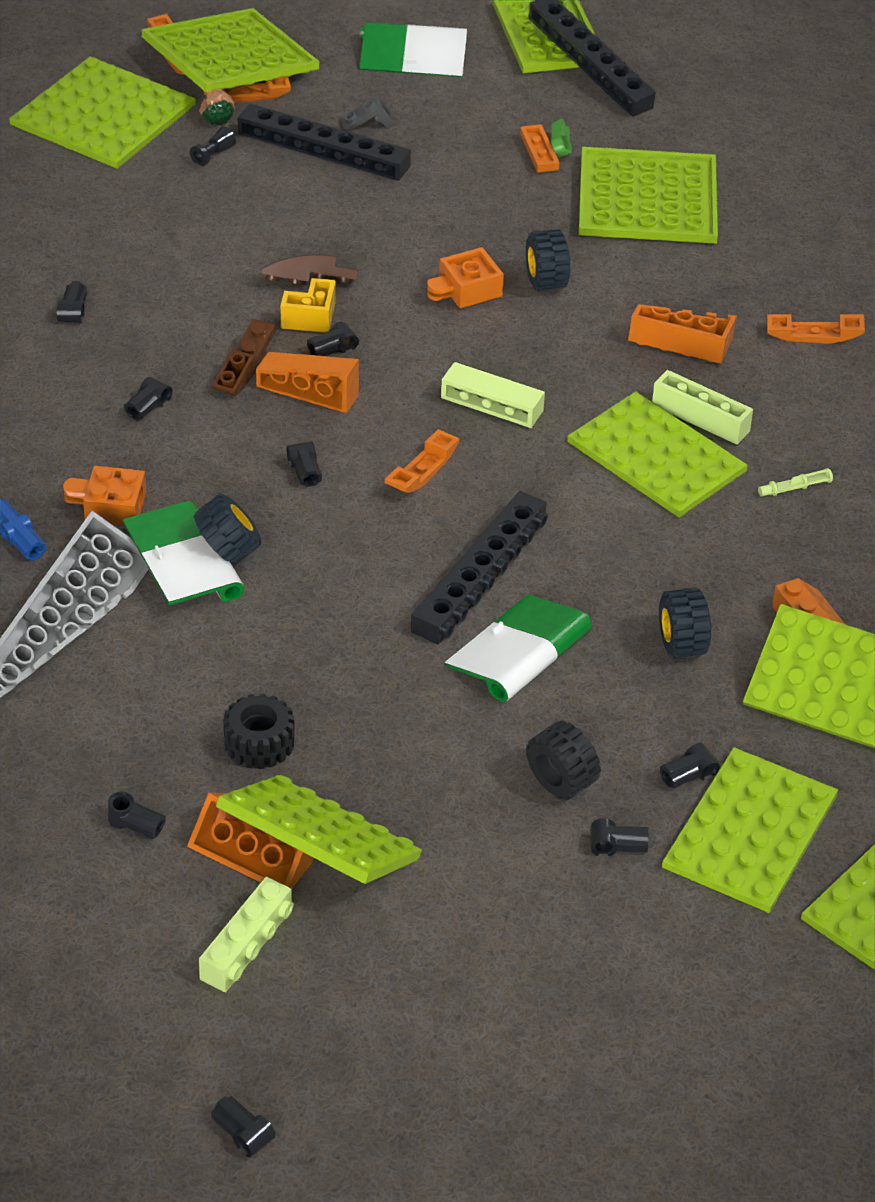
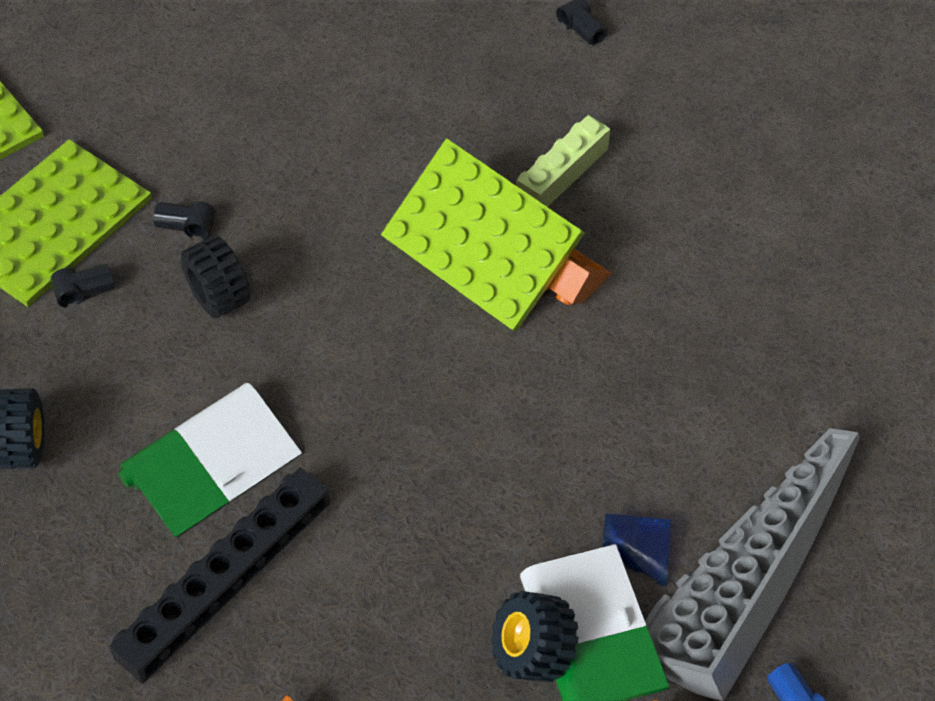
camera: 170 degrees left, 10 degrees up
(127, 814) = (672, 300): black piece -> none
(146, 622) = (641, 543): none -> clear blue slope
(259, 746) = (522, 389): black tyre -> none

